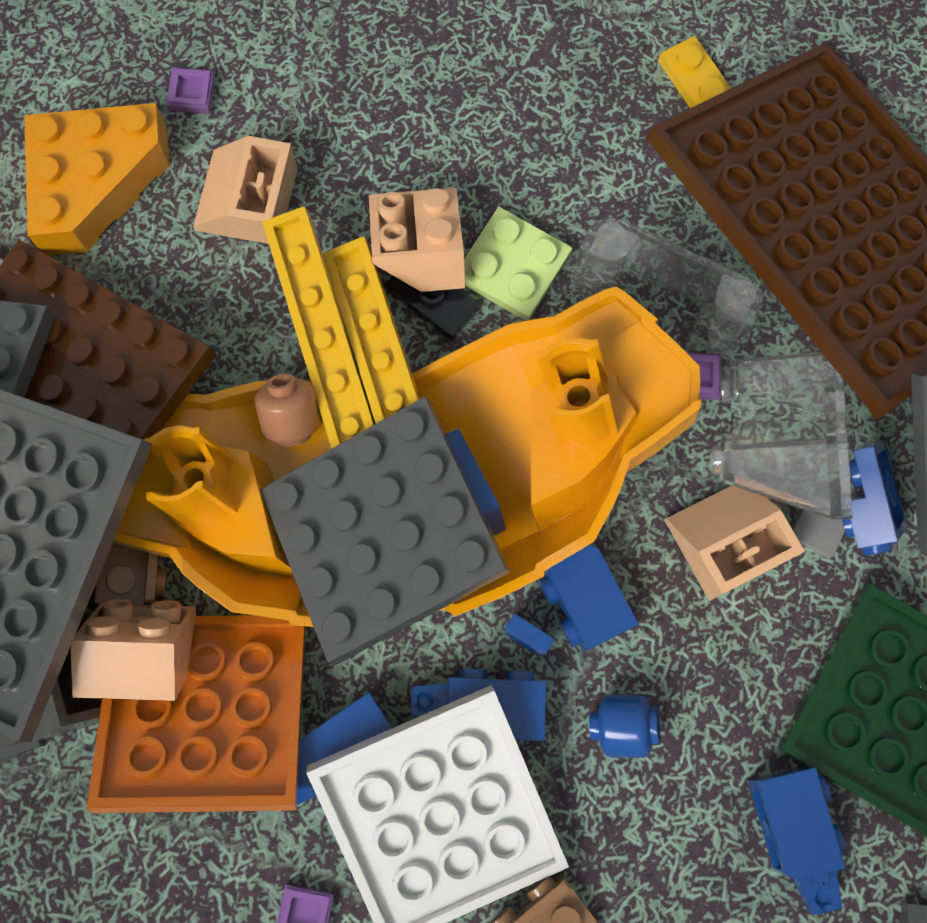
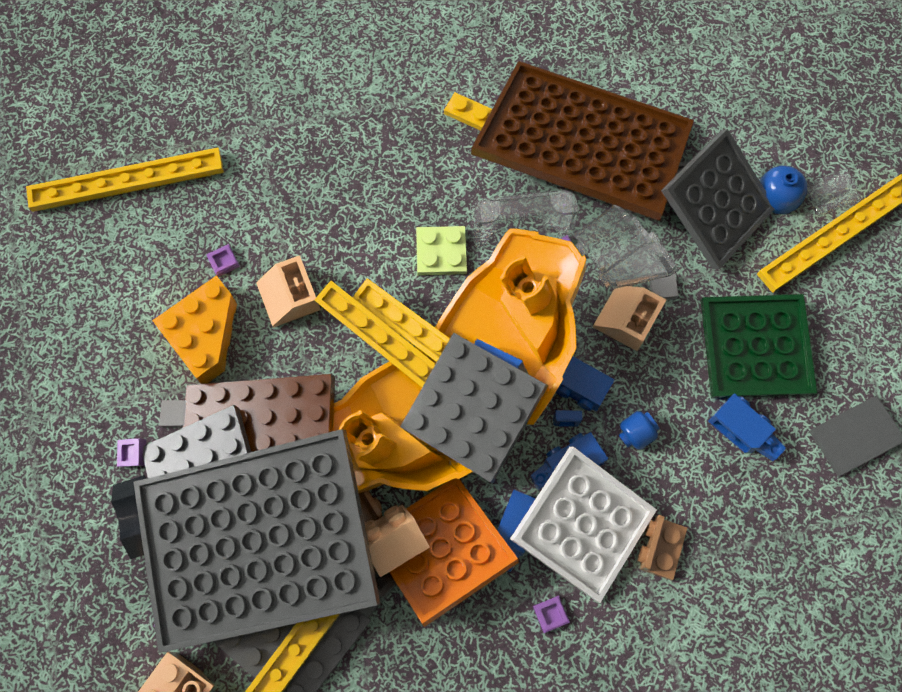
camera: 30 degrees left, 5 degrees down
(287, 410) = (387, 381): nougat head -> none
(419, 237) = (392, 263): light nougat slope -> none
(443, 309) = (413, 289): black plate -> none
(877, 508) = (689, 265): plate -> none

